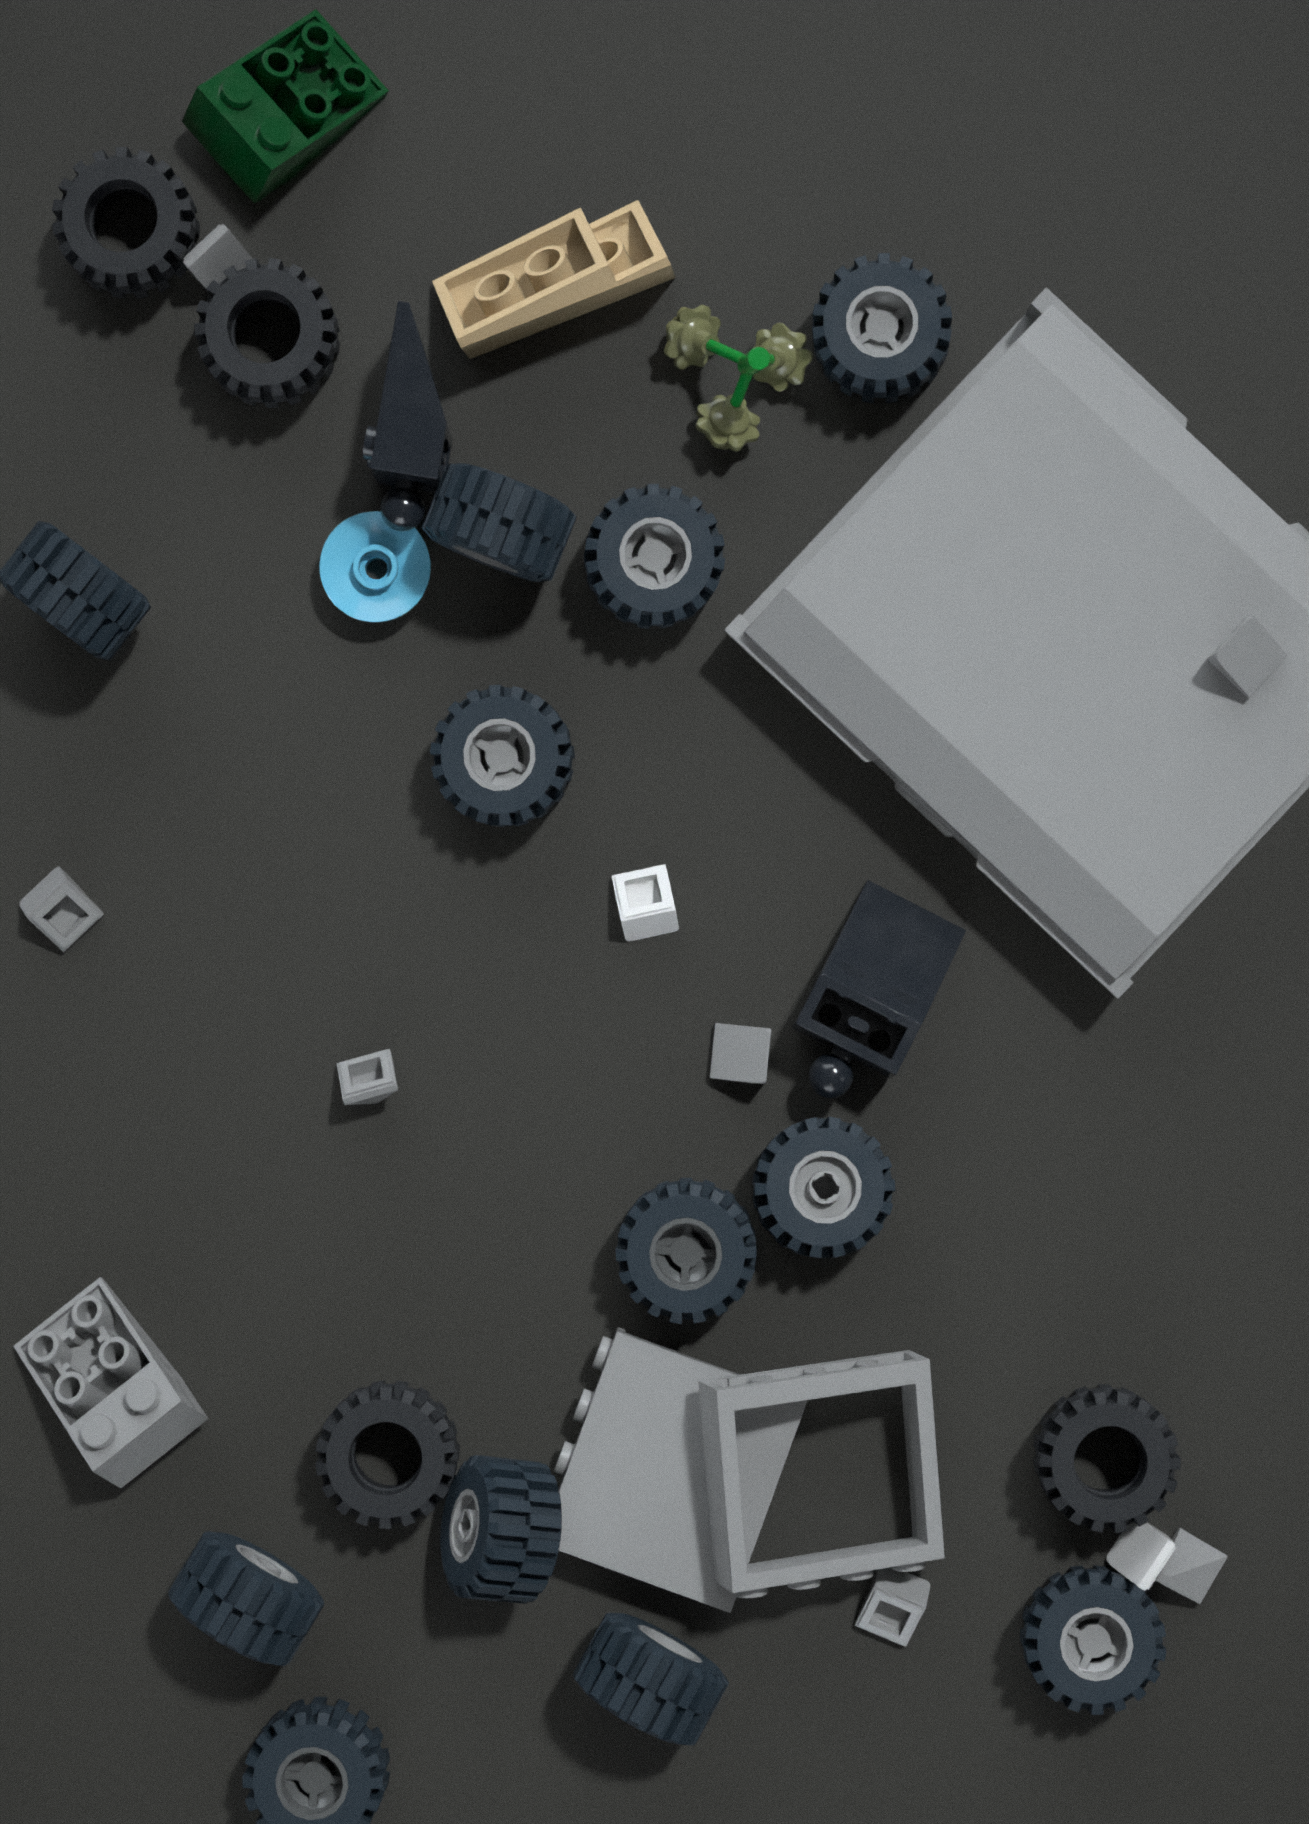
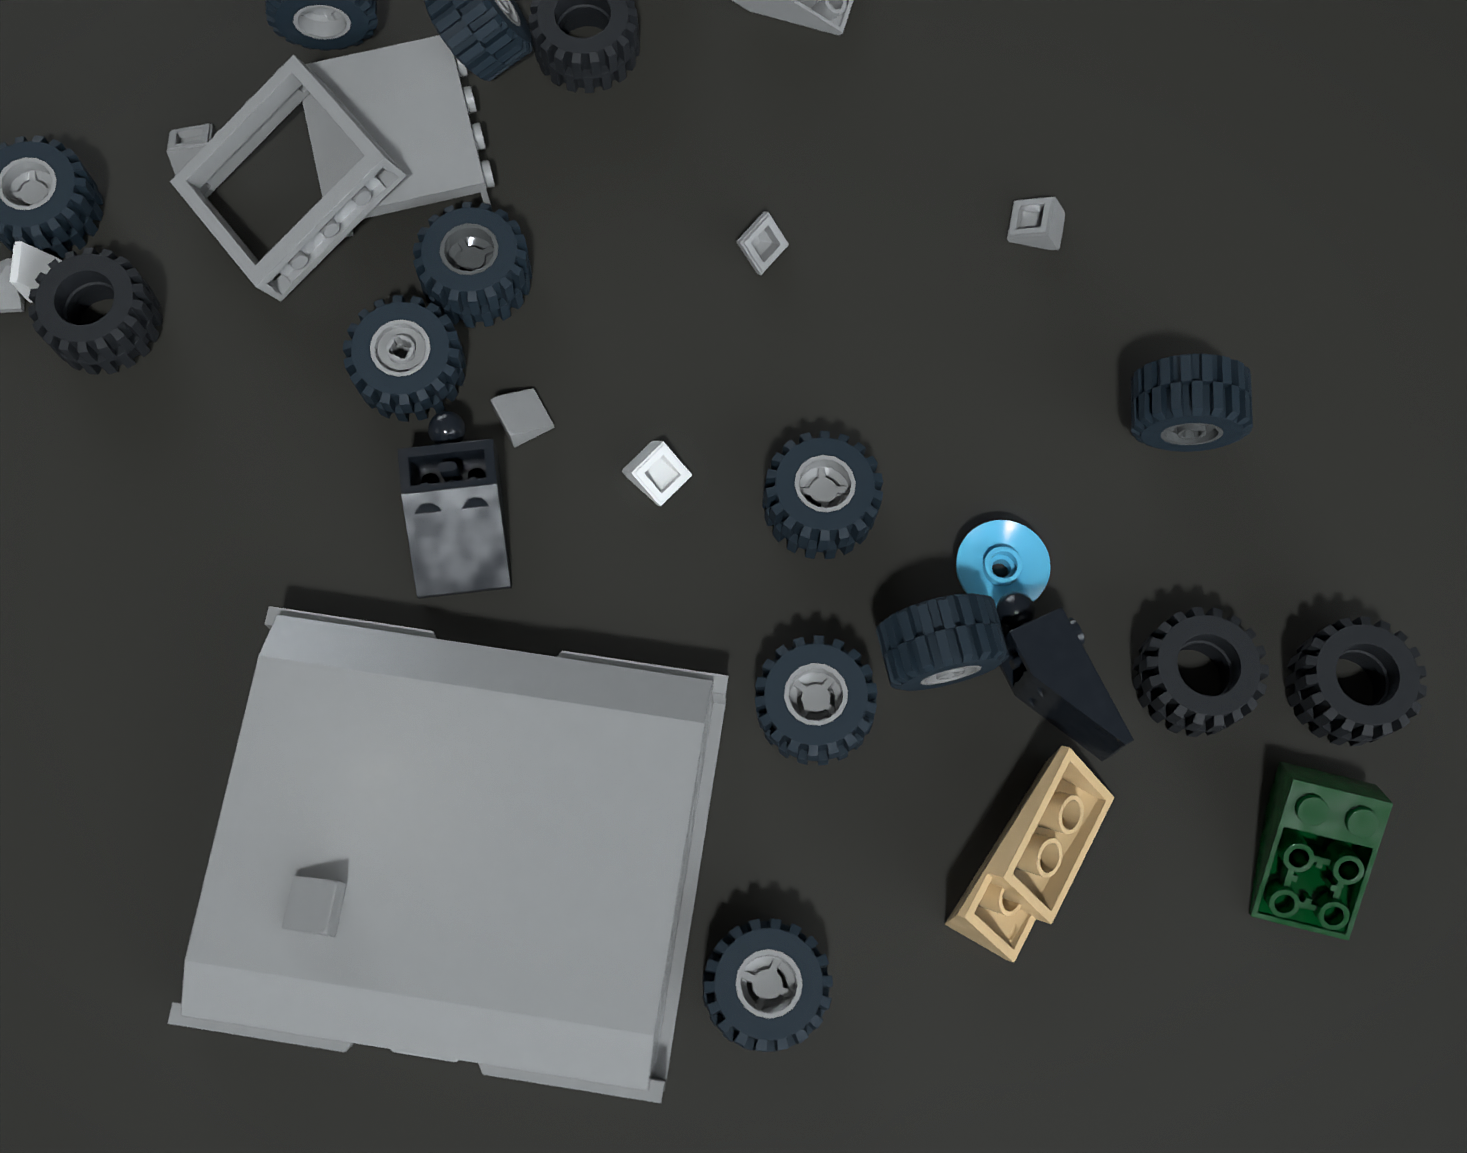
camera: 145 degrees right, 15 degrees down
(214, 255) = (1276, 707): light grey slope -> none
(775, 359) = (830, 912): olive plant -> none

